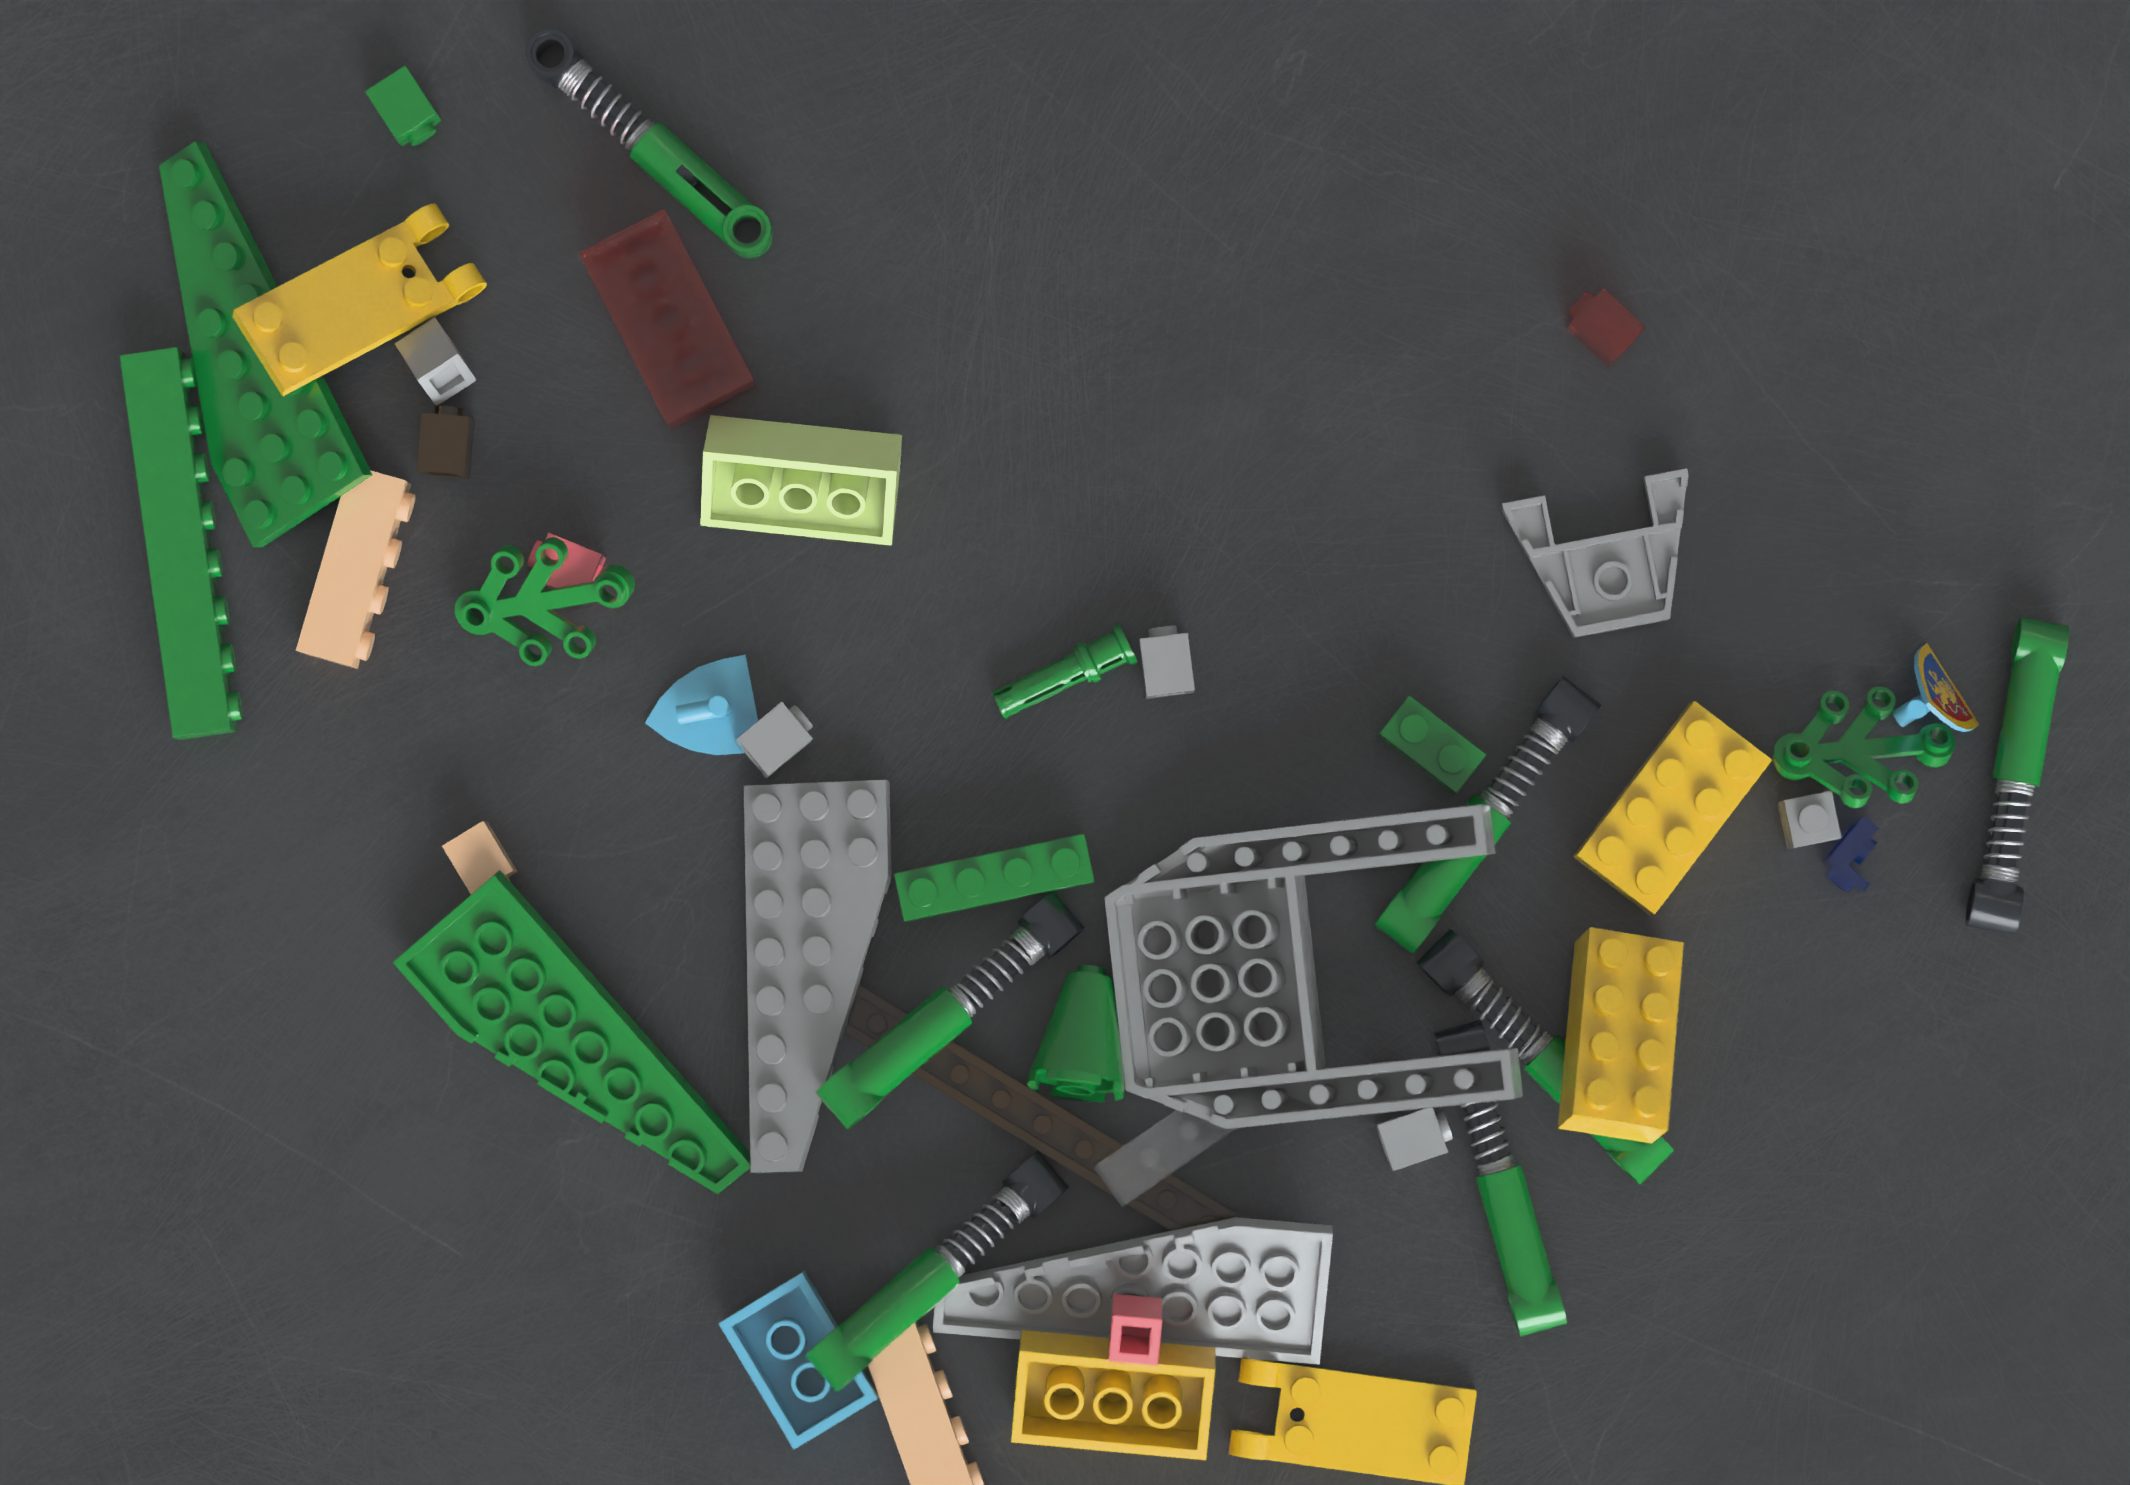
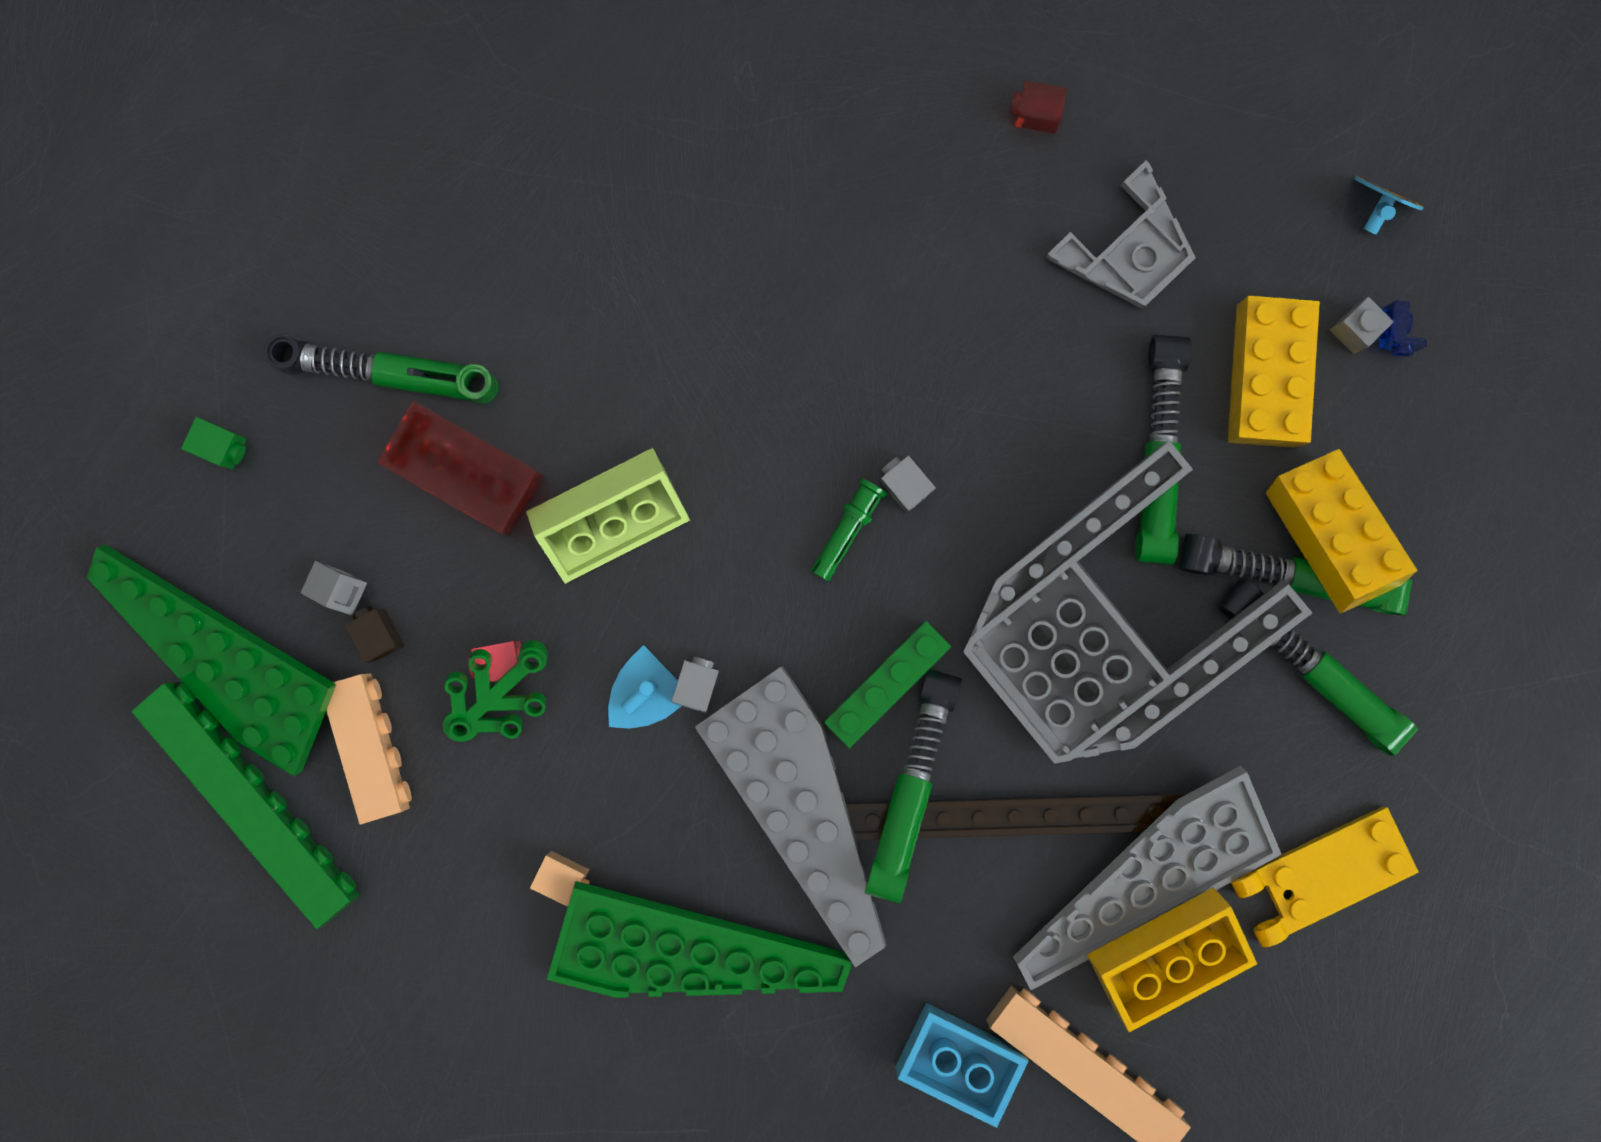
camera: 35 degrees left, 0 degrees up
(353, 303) = (256, 584): yellow hinge -> none
(932, 1275) = (992, 1043): piece -> none
(1082, 1041) = (1006, 749): green cone -> none
(1135, 1329) = (1162, 912): coral brick -> none
(1157, 1154) = (1098, 792): clear tile -> none
(1414, 1137) = (1250, 680): light grey brick -> none
(1431, 745) = (1101, 428): green brick -> none
(1858, 751) = (1335, 288): green plant -> none
(2036, 661) = (1432, 139): piece -> none

